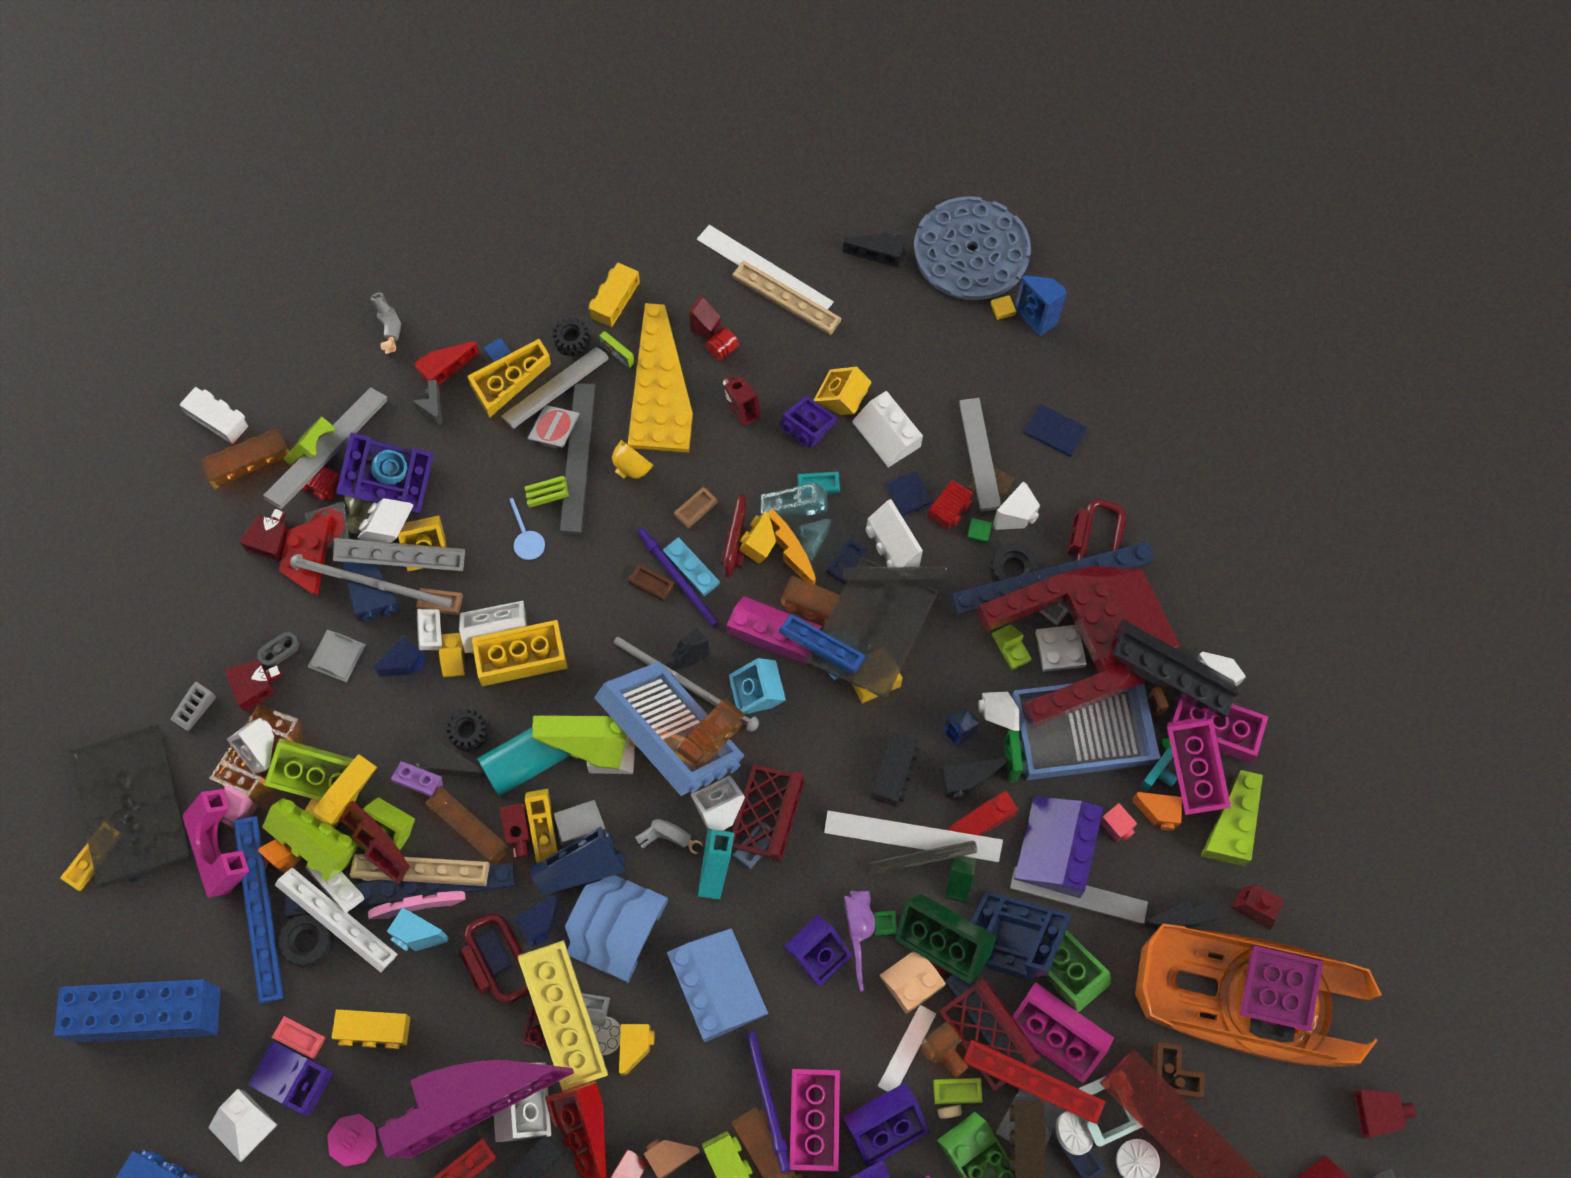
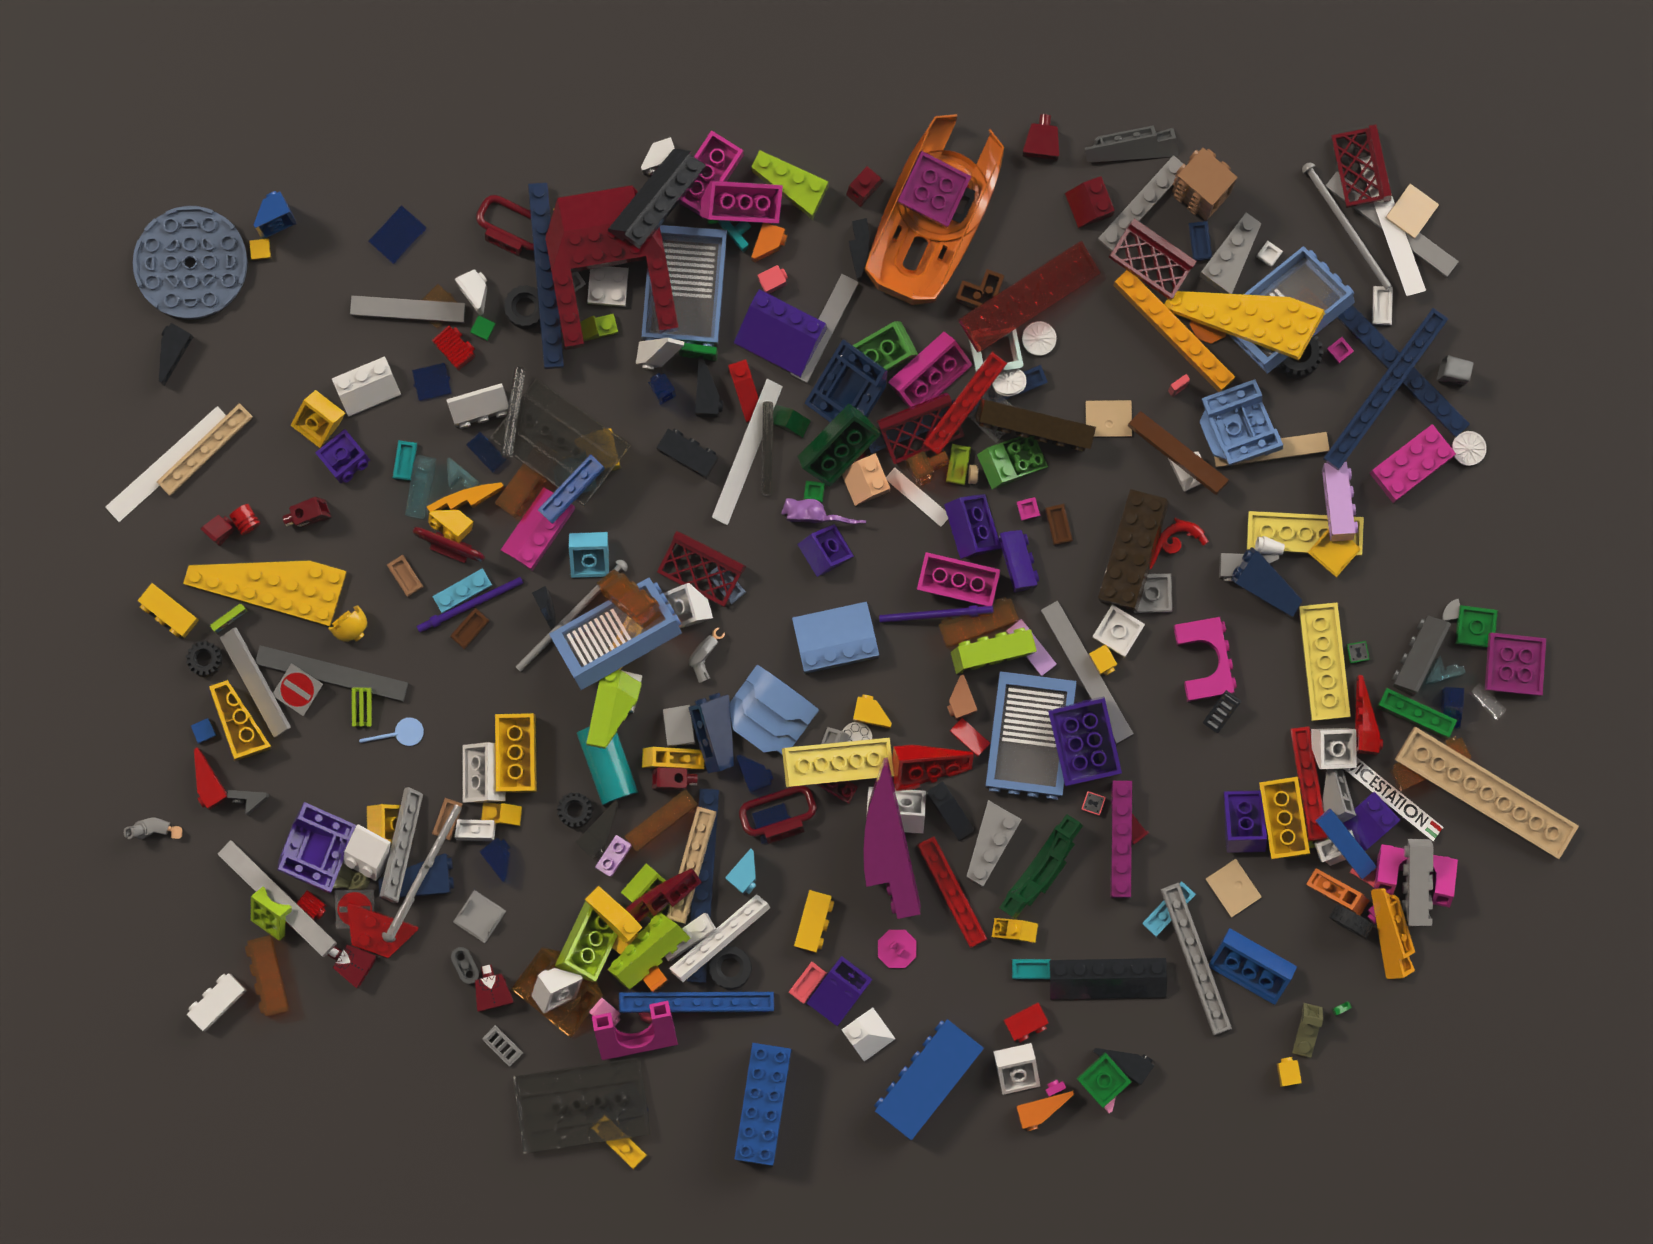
camera: 75 degrees left, 15 degrees up
(388, 467) = (312, 843): dark azure hair -> none
(416, 903) = (720, 849): bright pink tile -> none
(715, 863) = (736, 618): teal slope -> none
(1157, 703) = (679, 219): reddish brown tile -> none

